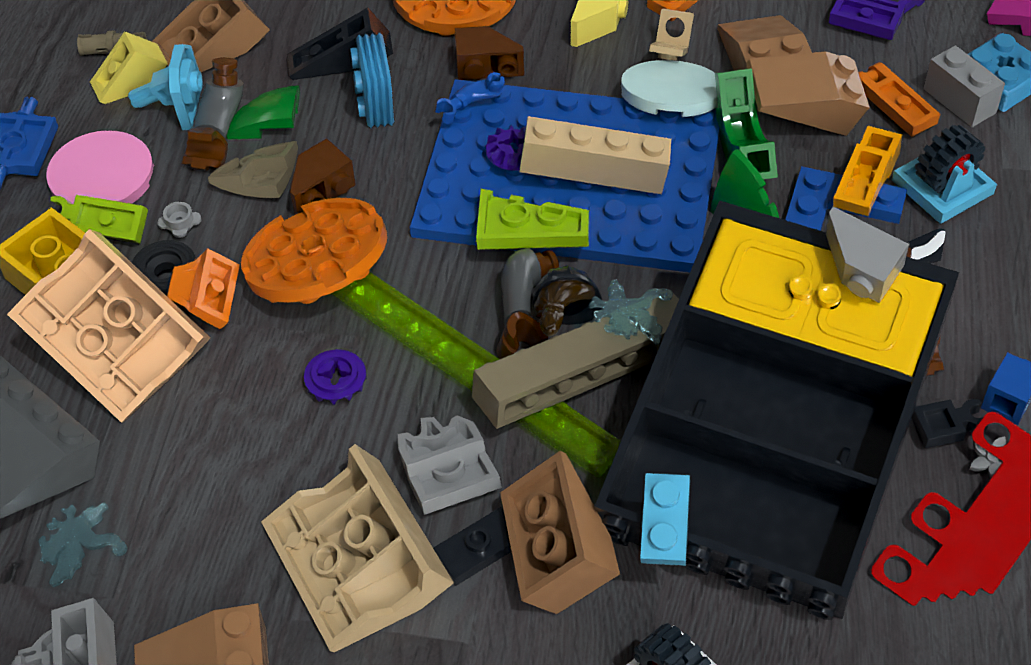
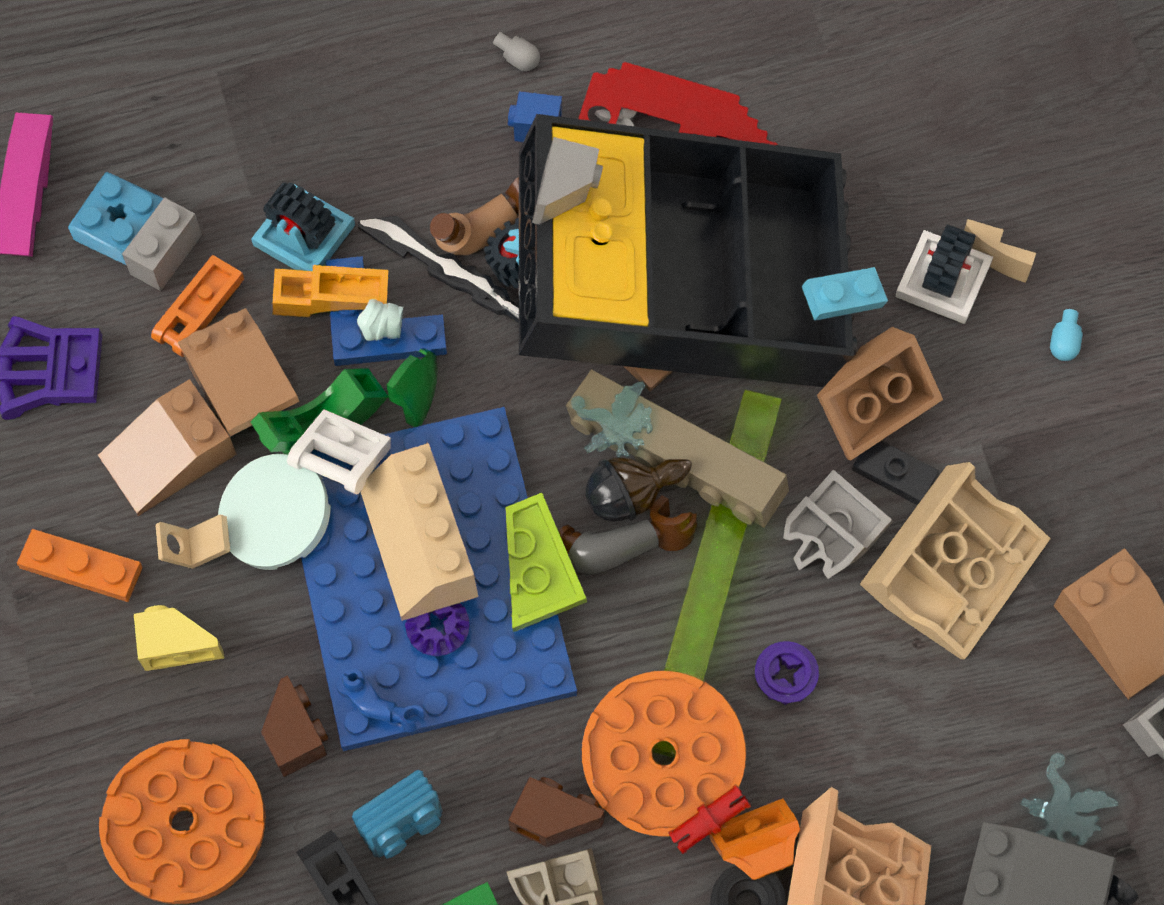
camera: 115 degrees left, 15 degrees up
(239, 255) = (709, 819): none -> red pin
(700, 128) = (343, 441): none -> white plate
(818, 184) = (380, 320): none -> light aqua arm

